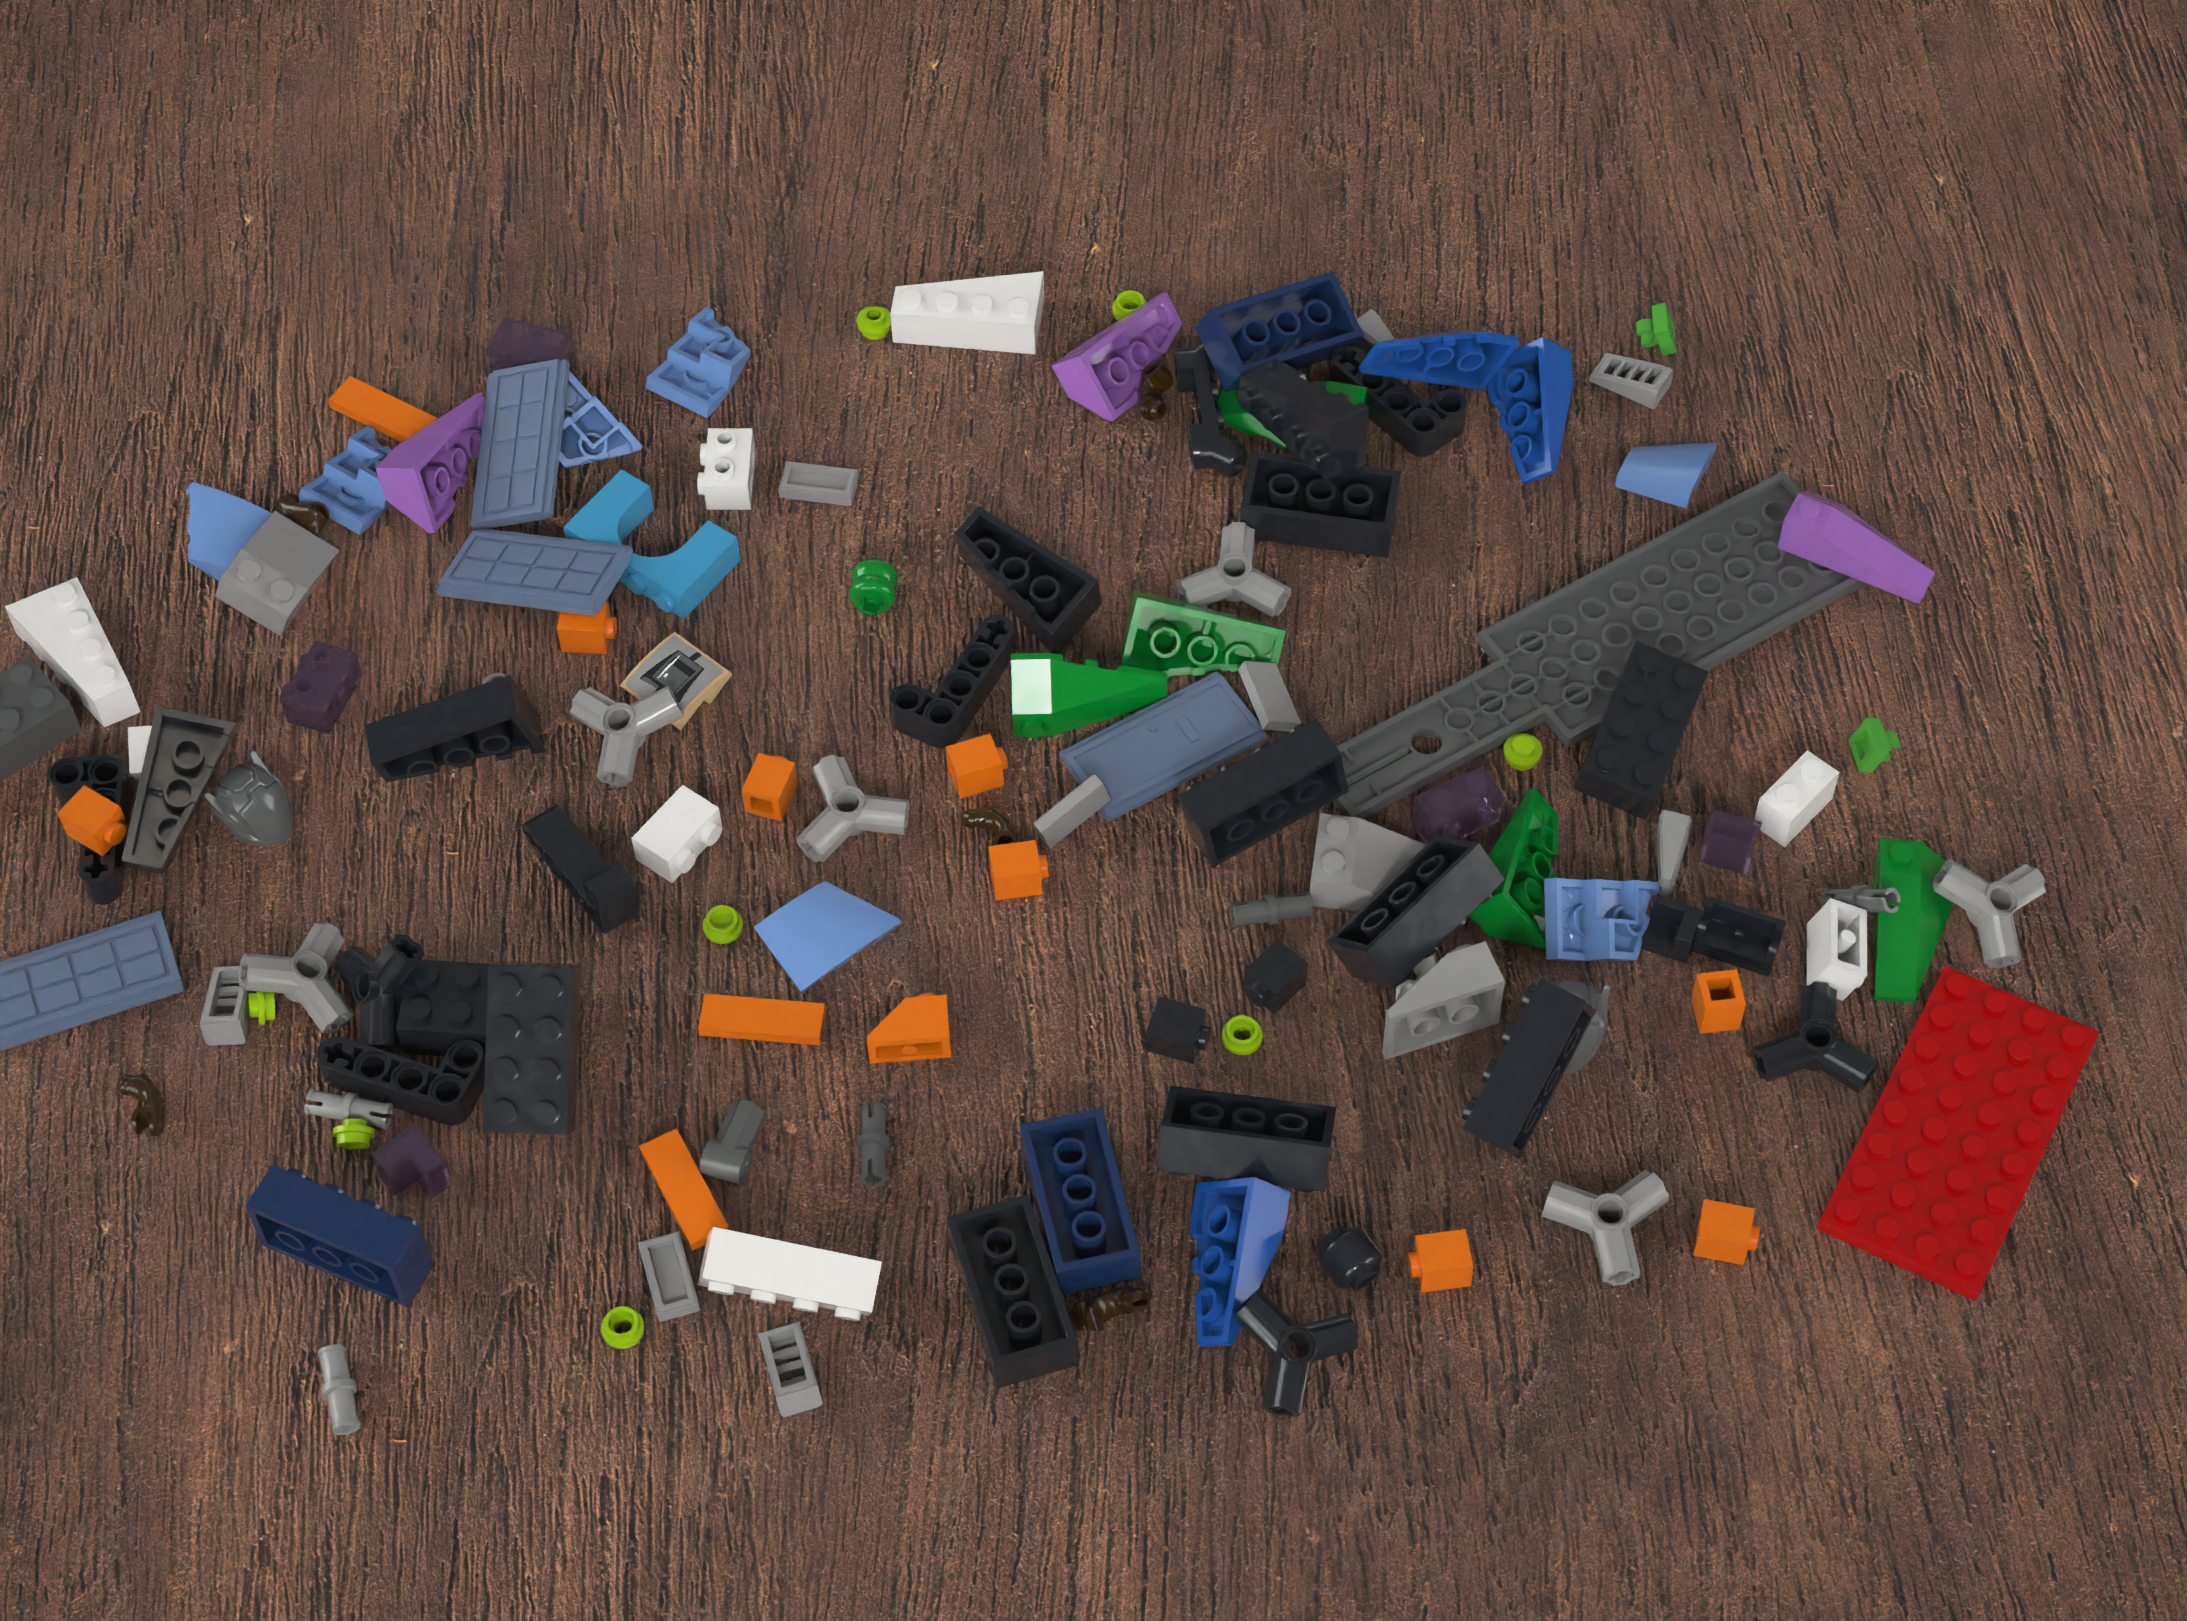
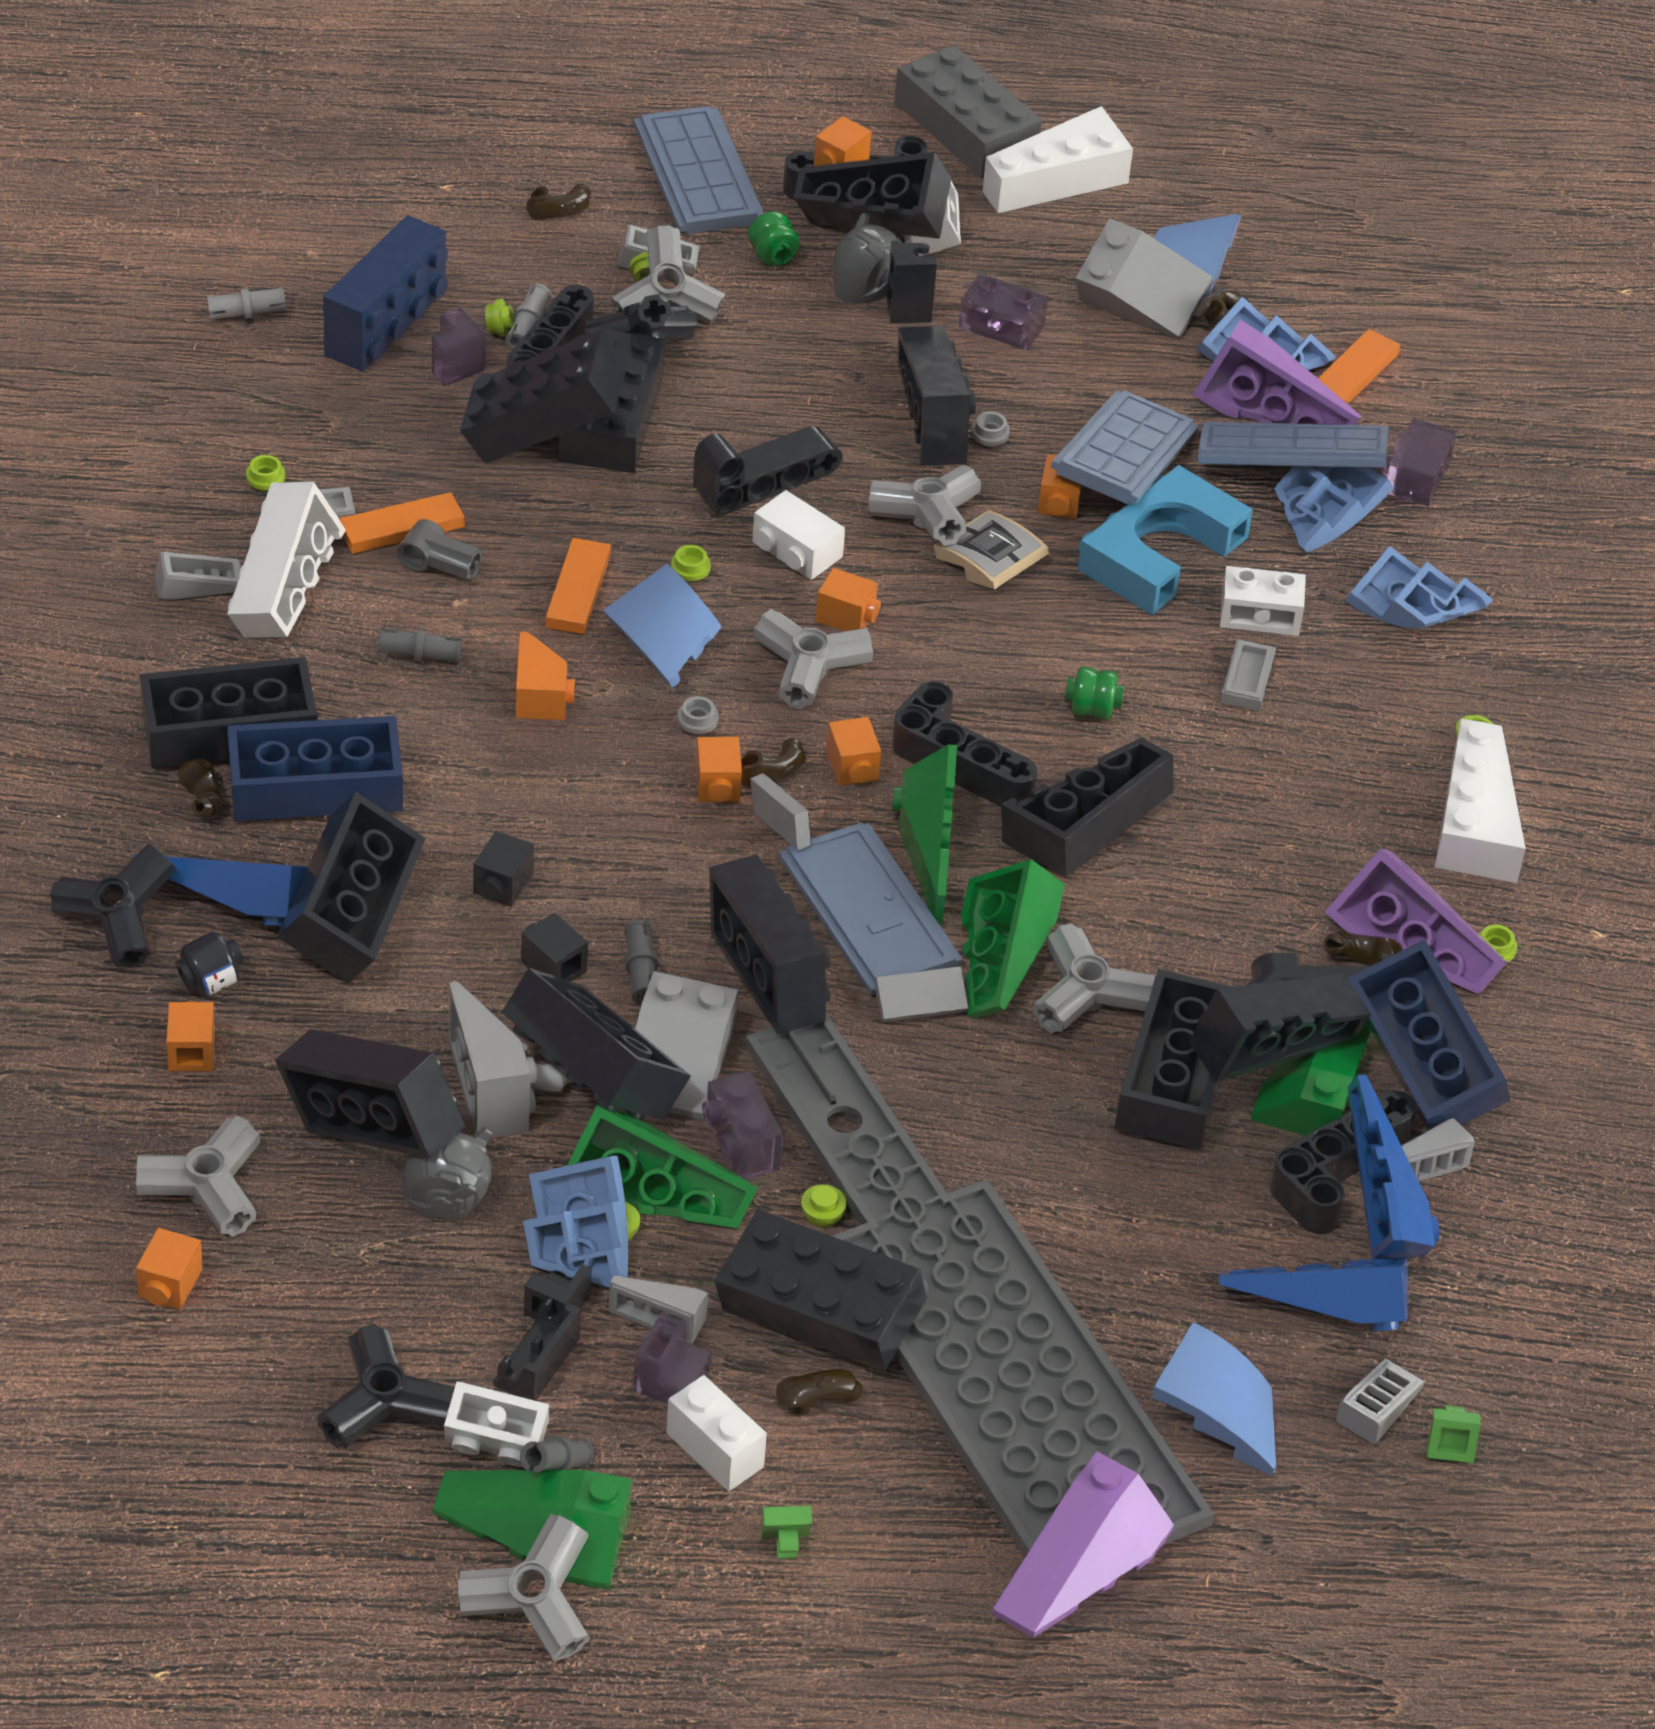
camera: 90 degrees right, 10 degrees down
(212, 892) = (773, 238): none -> green piece
(298, 759) = (910, 283): none -> black hinge
(938, 889) = (698, 715): none -> light grey plate
(1242, 1026) = (493, 923): lime plate -> none
(1718, 1001) = (447, 1303): orange brick -> none
(1733, 746) = (802, 1391): none -> dark brown piece
(1958, 1132) = (257, 1517): red plate -> none

